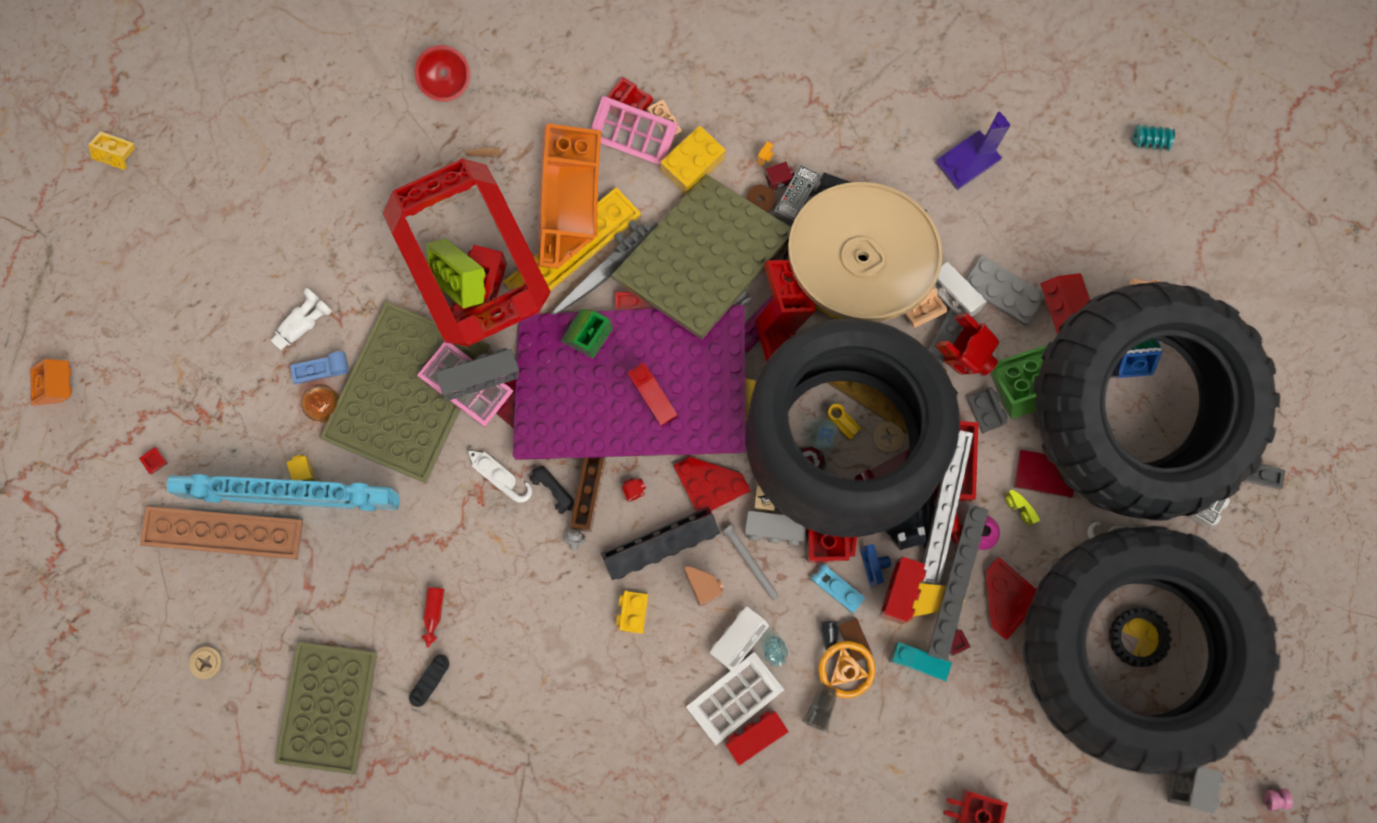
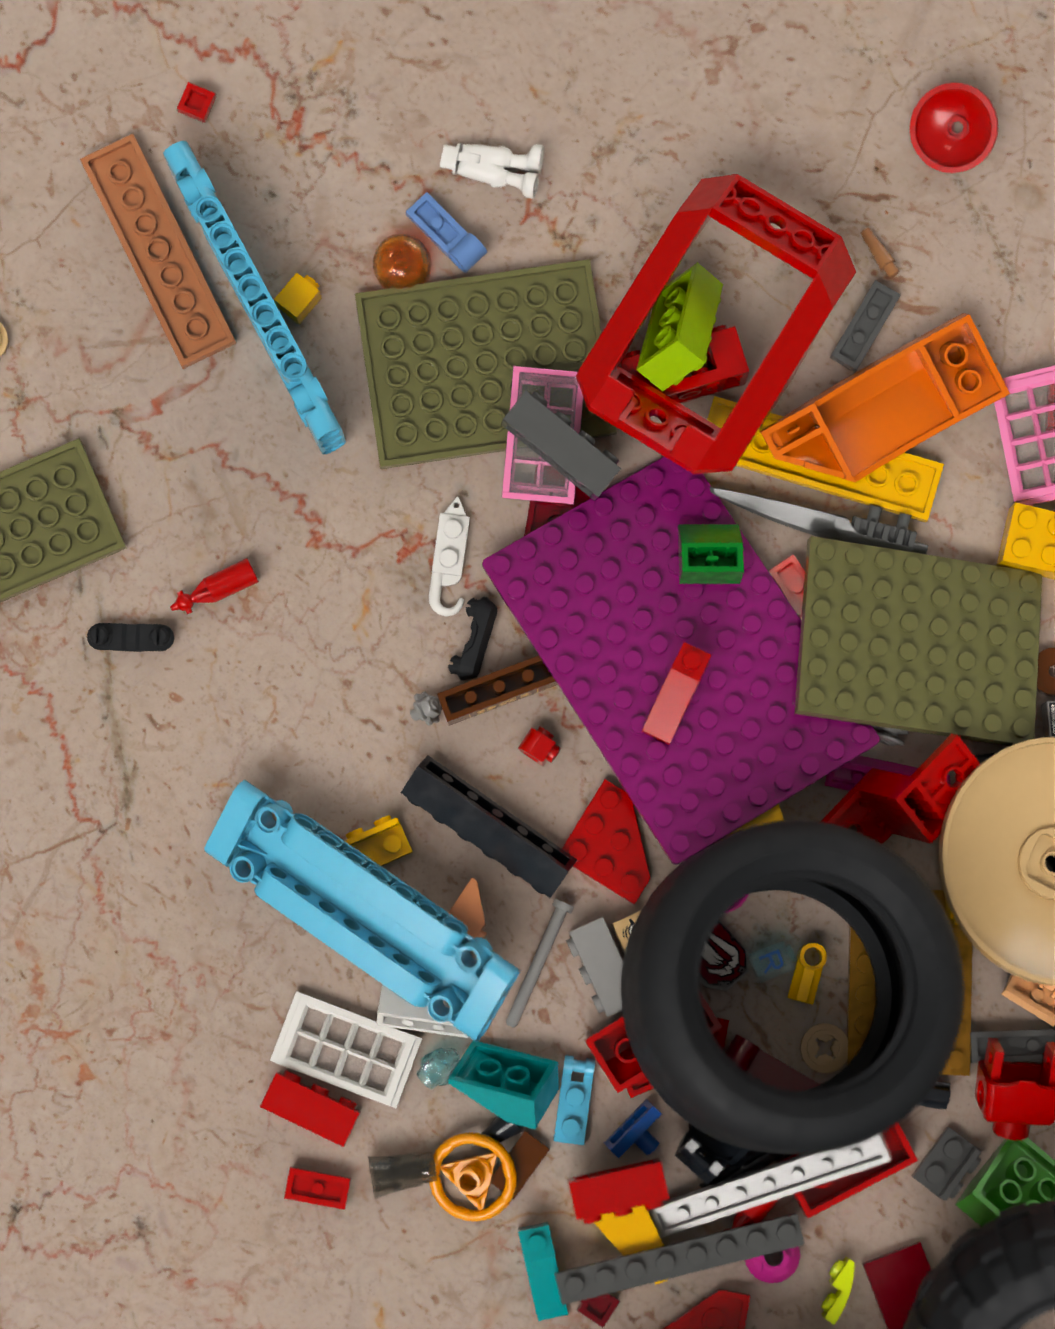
camera: 60 degrees right, 5 degrees up
(517, 182) = (865, 326): none -> dark grey plate
(663, 641) = (361, 910): none -> medium azure panel
(802, 761) = (317, 1188): none -> red plate
(806, 618) = (507, 1082): none -> teal slope

